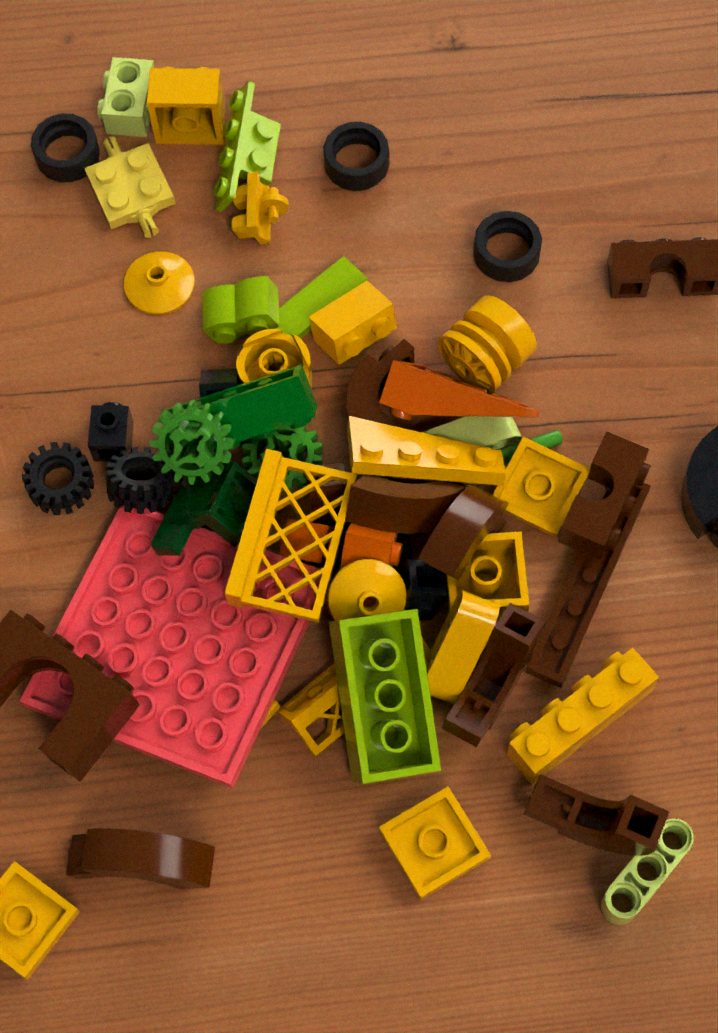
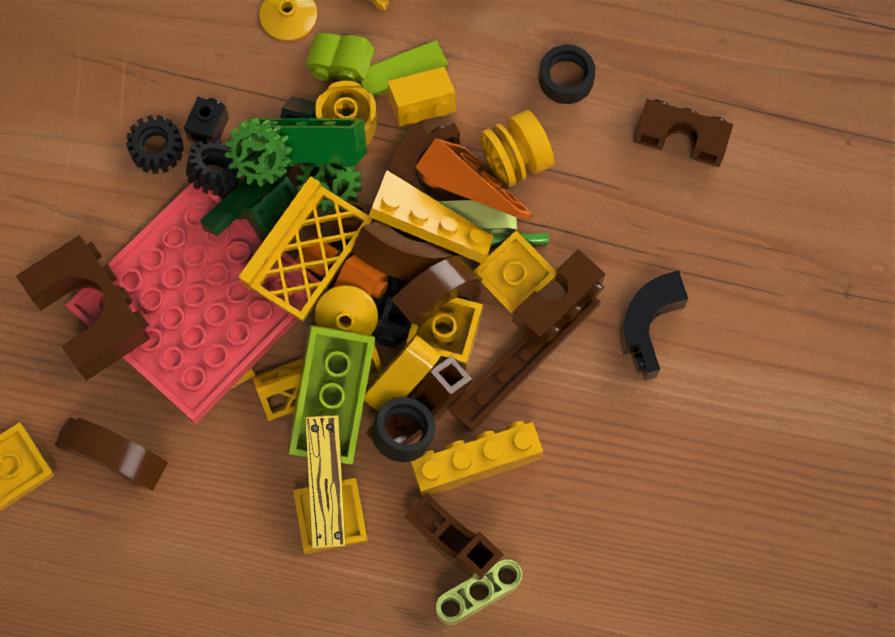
camera: 15 degrees right, 5 degrees up
(419, 801) = (325, 481): none -> light yellow tile
(495, 683) = (415, 411): none -> black tyre

